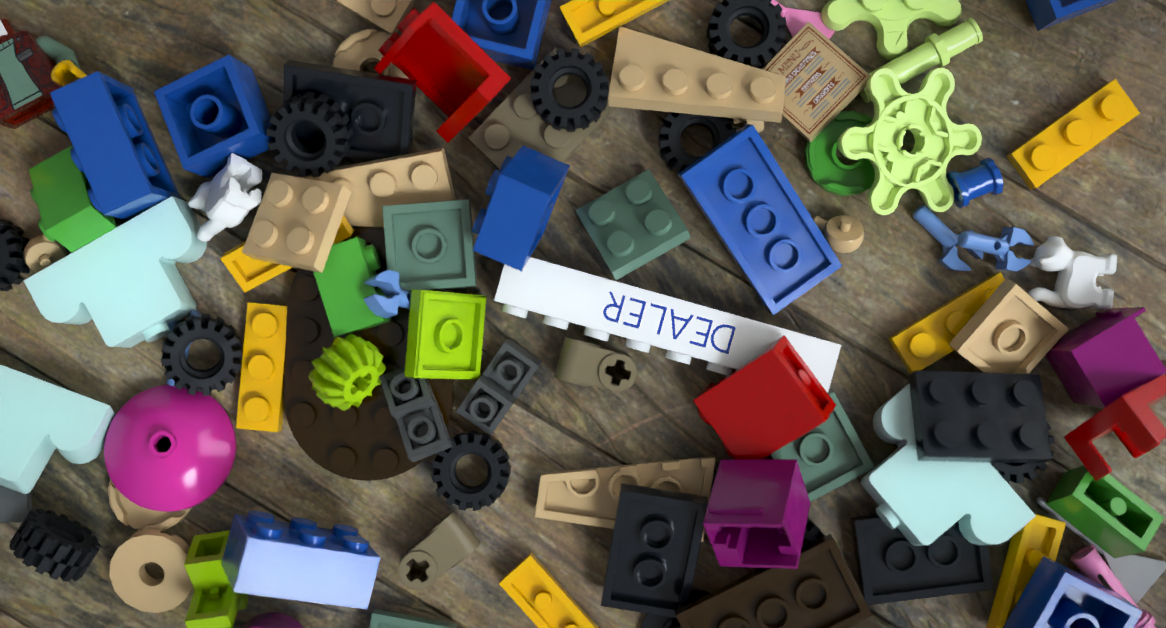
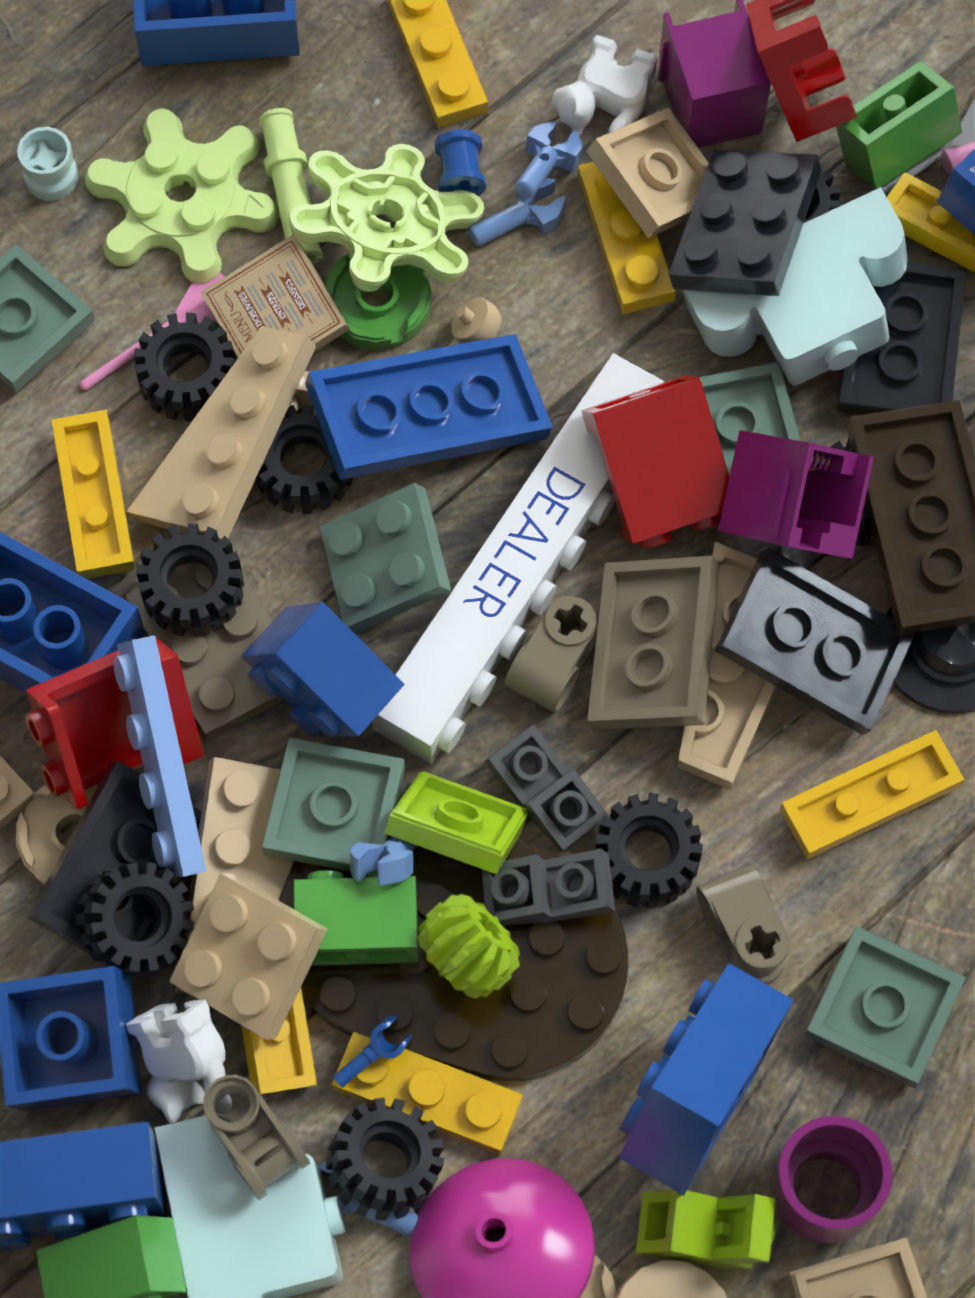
camera: 70 degrees left, 20 degrees down
(167, 270) = (253, 1137): none -> dark tan piece
(274, 330) = (372, 1052): none -> blue hand
(431, 102) = (154, 734): none -> light blue plate
(622, 435) = (654, 643): none -> dark tan plate

